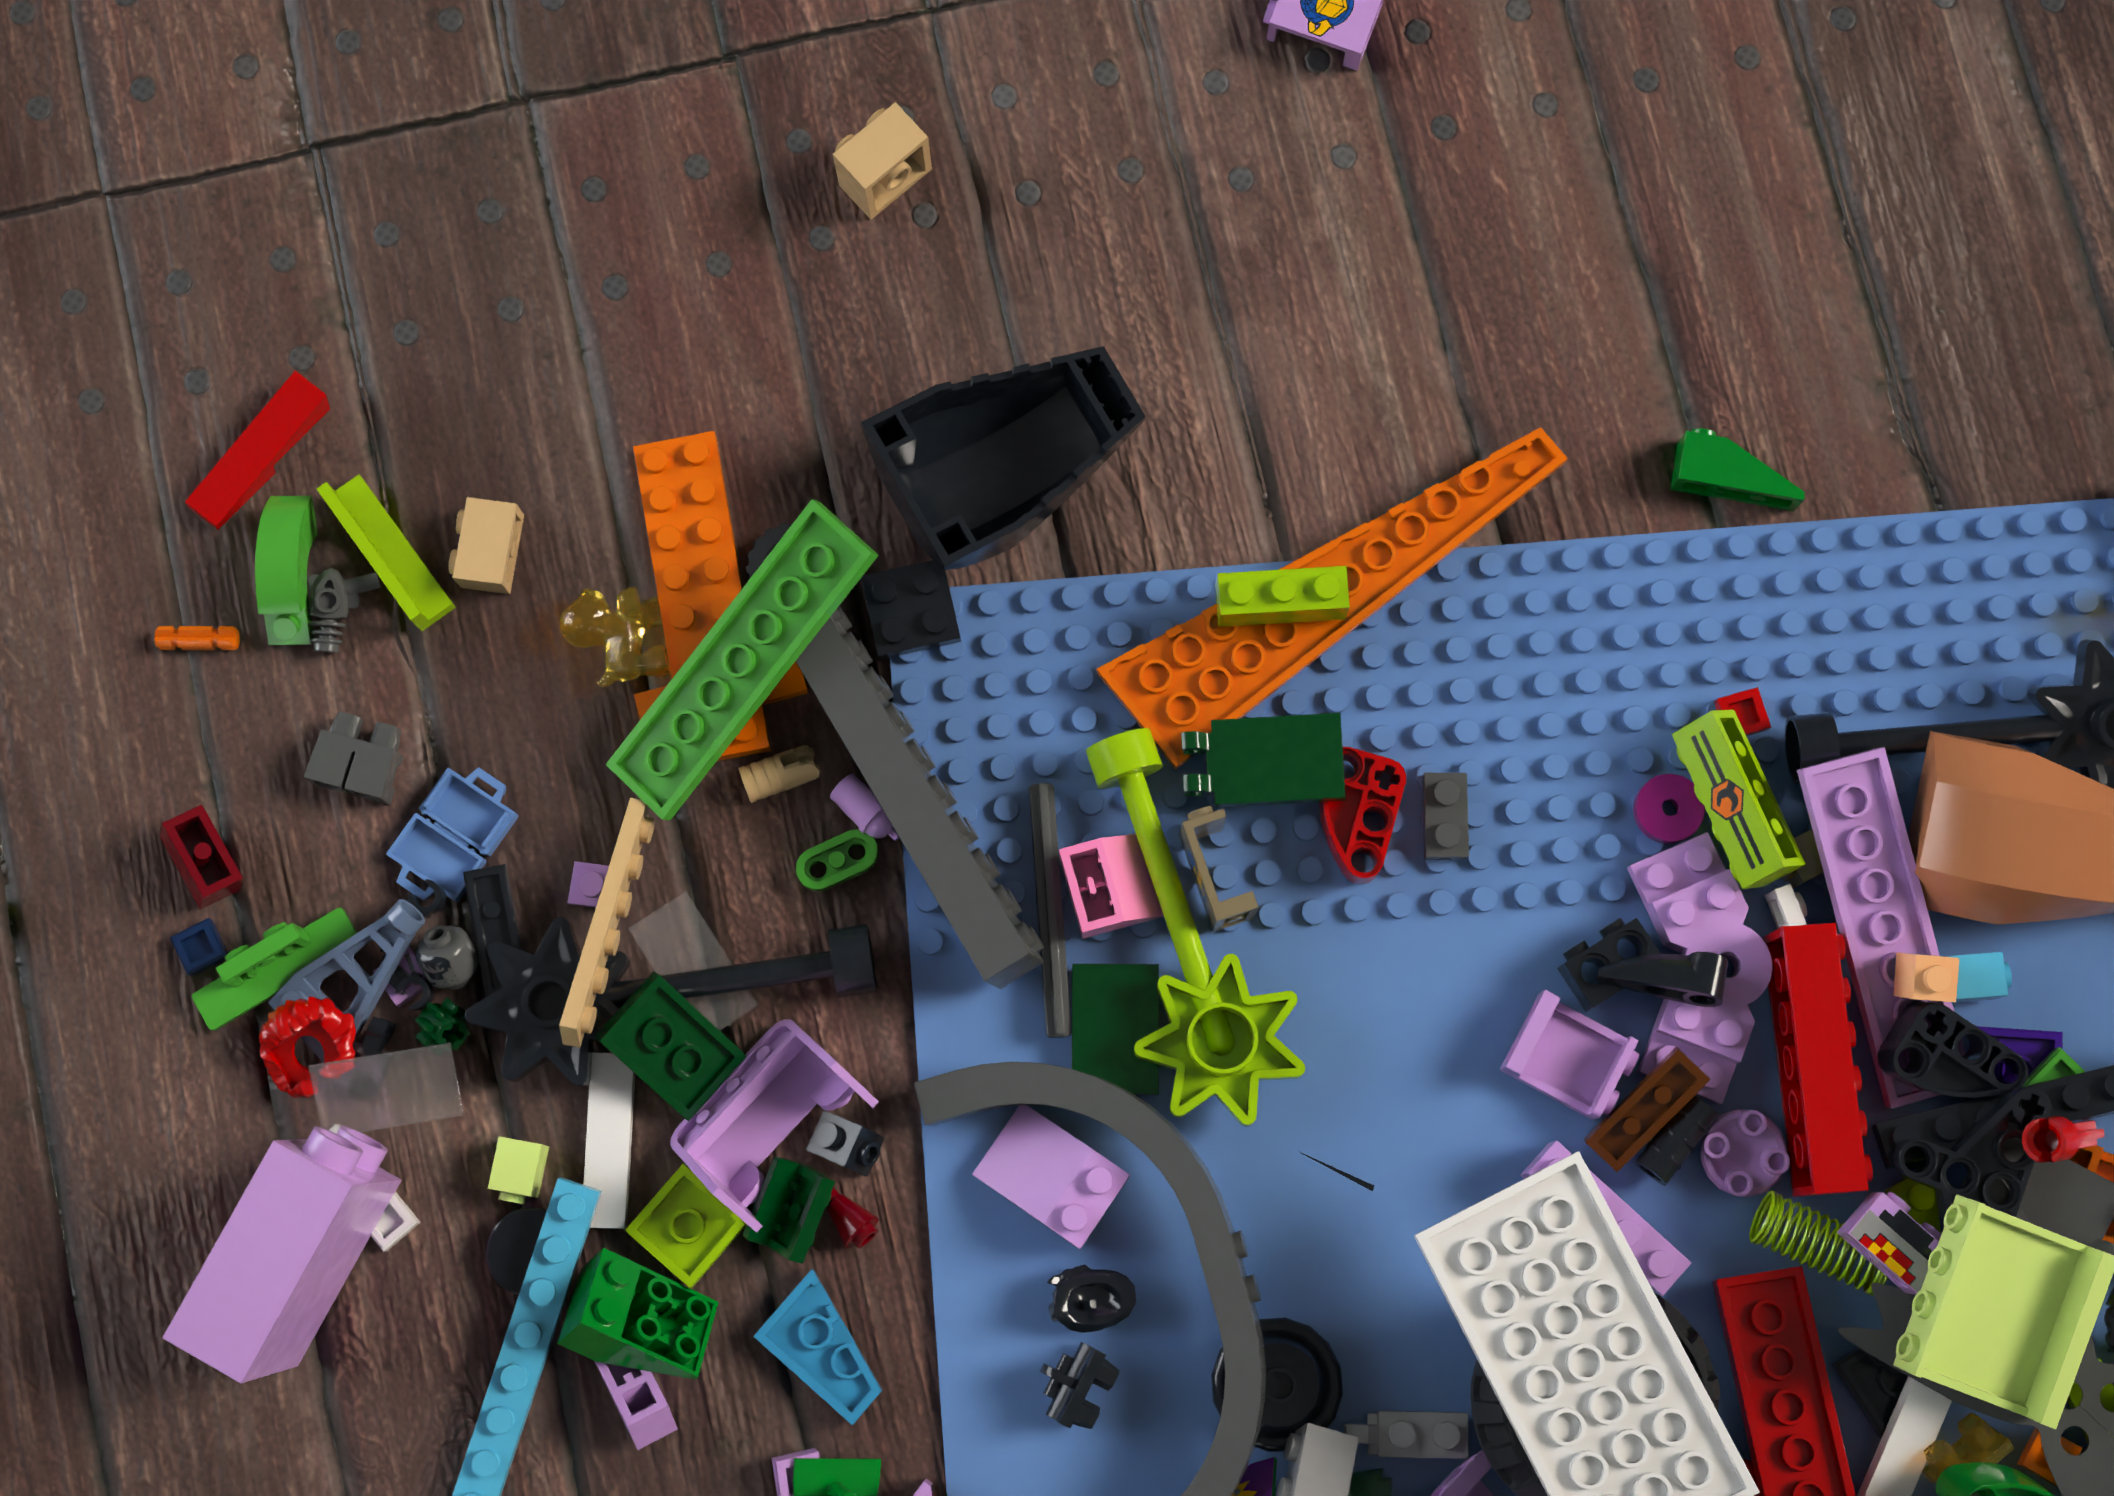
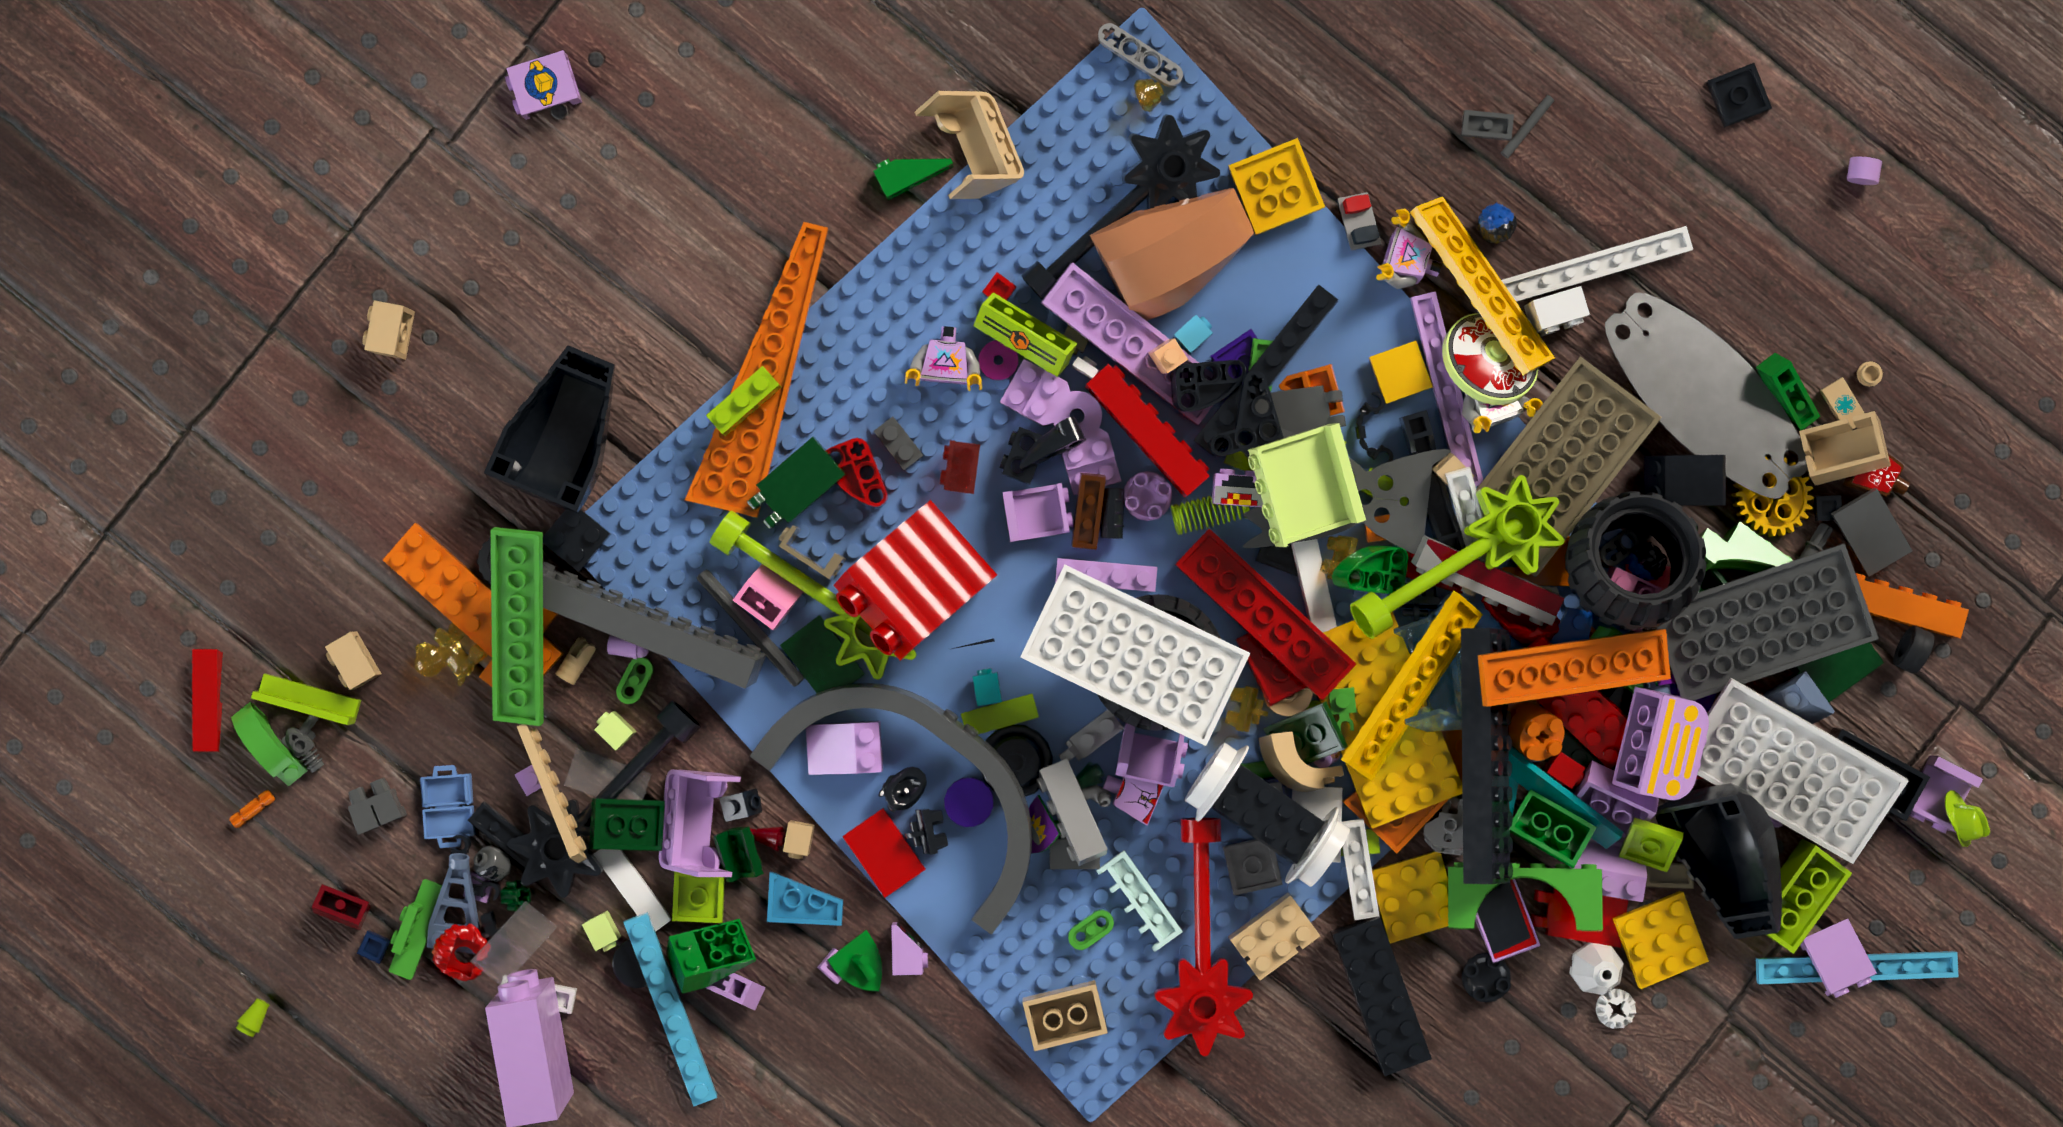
camera: 35 degrees left, 10 degrees up
(756, 905) = (614, 729): none -> yellowish green brick
(887, 1254) = (798, 839): none -> tan brick
(992, 1368) = (884, 852): none -> red tile
(1166, 1390) = (968, 802): none -> dark purple tile
(1309, 1301) = (1001, 714): none -> lime tile
(1316, 1246) = (987, 687): none -> teal brick
(1332, 1014) = (913, 581): none -> red brick
(1510, 913) = (961, 467): none -> clear red bracket
(1596, 755) = (945, 362): none -> torso
(1865, 494) = (982, 137): none -> tan windscreen
(2058, 1138) = (1275, 388): red piece -> none

